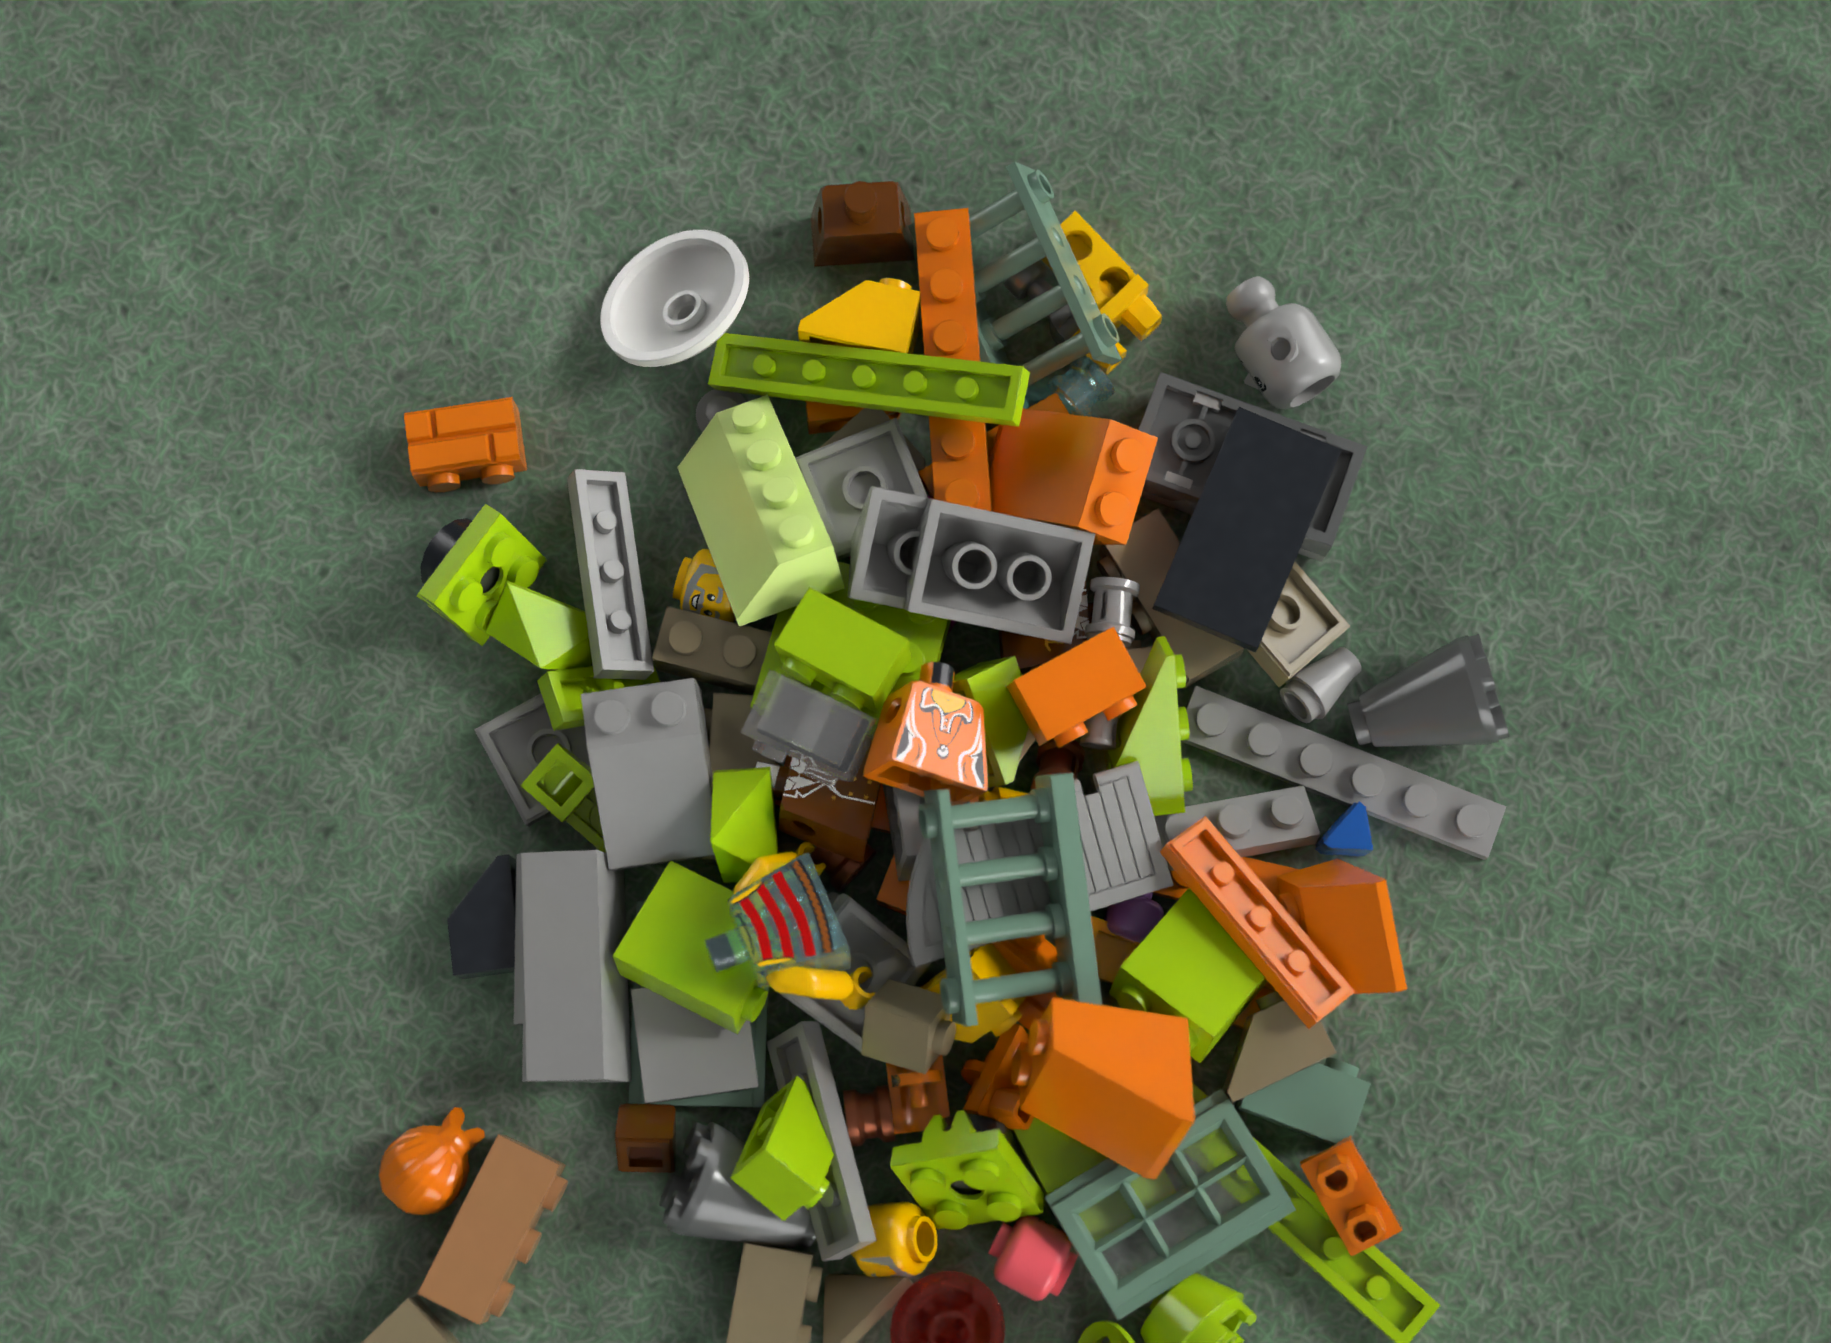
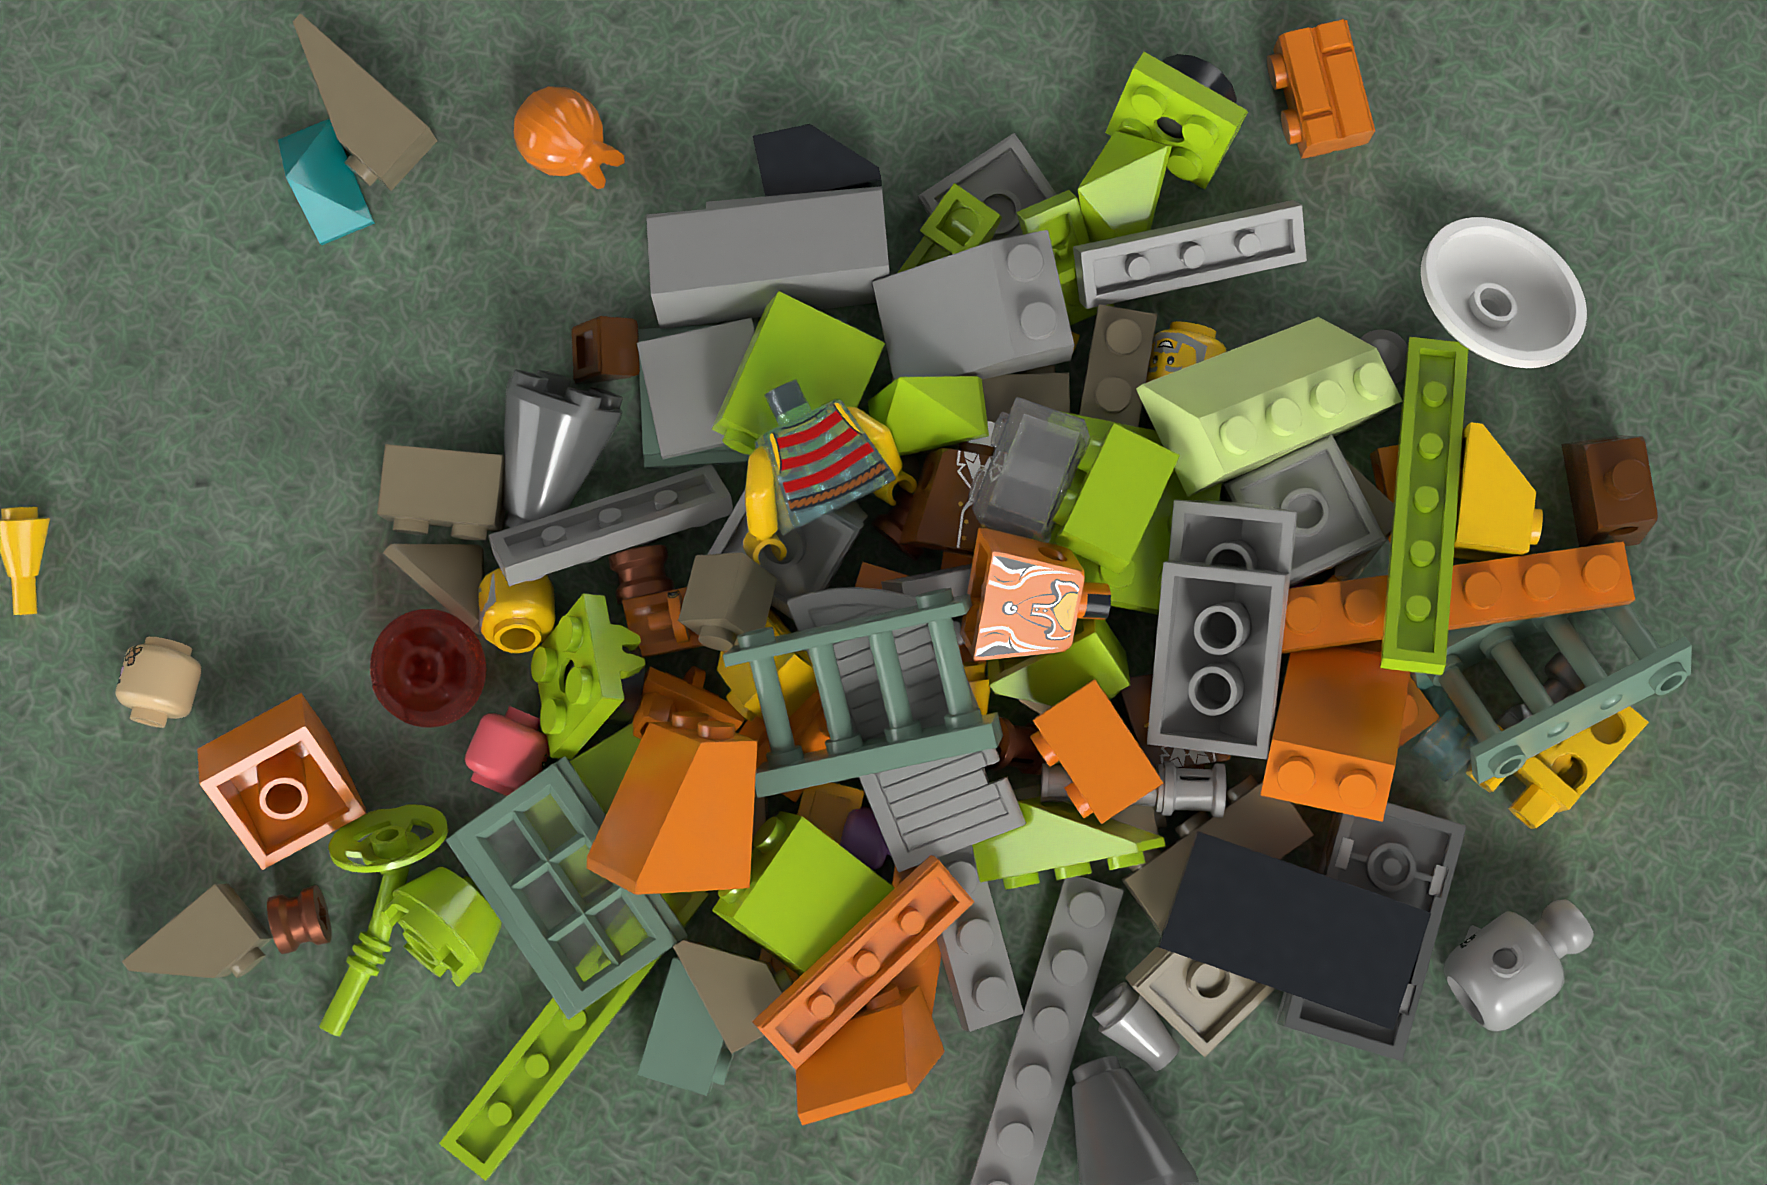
camera: 95 degrees right, 5 degrees up
(494, 1230) = (503, 207): medium nougat brick -> none
(786, 1153) = (592, 487): lime slope -> none
(1348, 834) = (974, 1062): blue slope -> none
(1351, 1196) = (588, 1079): orange hips -> none

